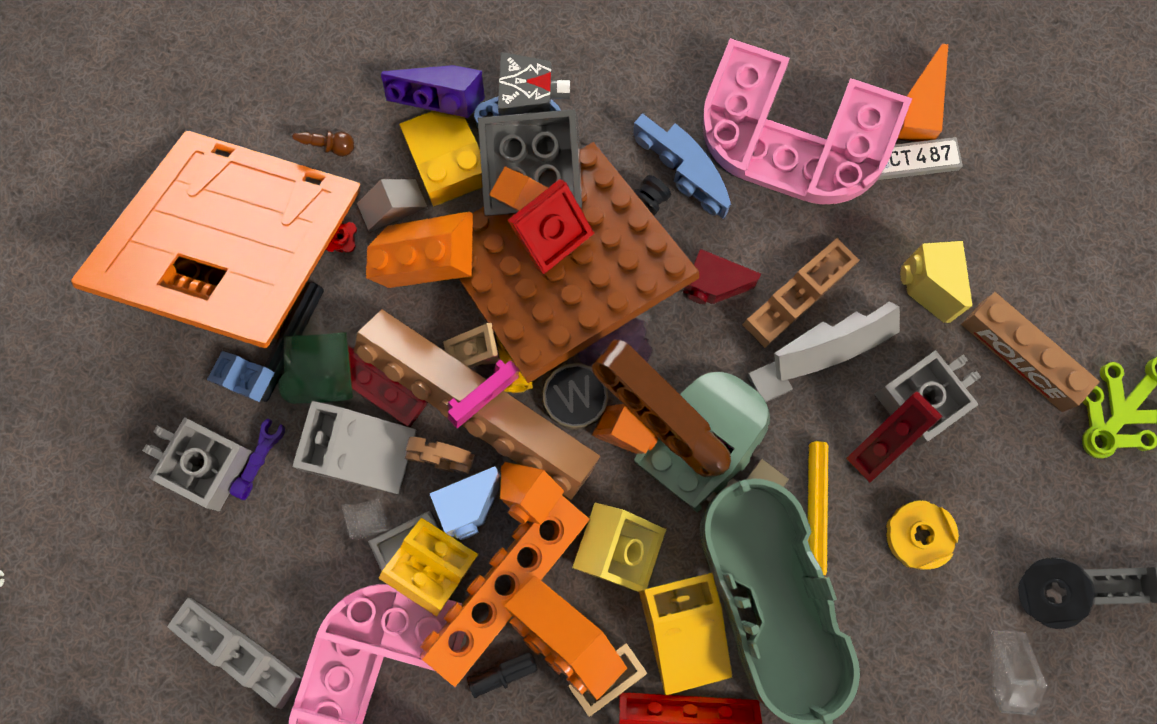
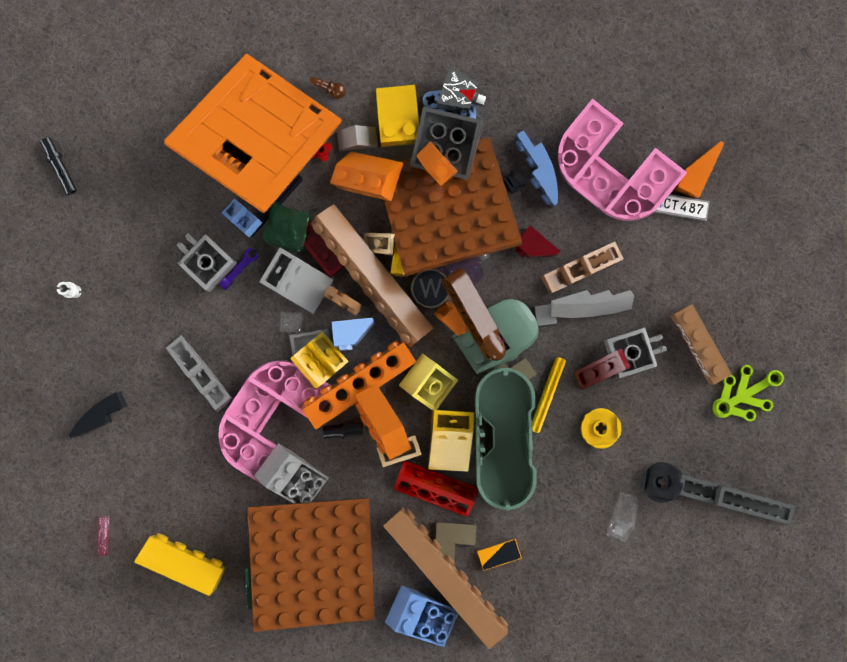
camera: 20 degrees right, 10 degrees up
(439, 88) = (407, 75): dark purple slope -> none
(504, 376) = (373, 276): dark pink piece -> none
(528, 492) = (386, 337): orange slope -> none
(551, 226) = (445, 189): red tile -> none
(939, 279) = (662, 286): light yellow slope -> none

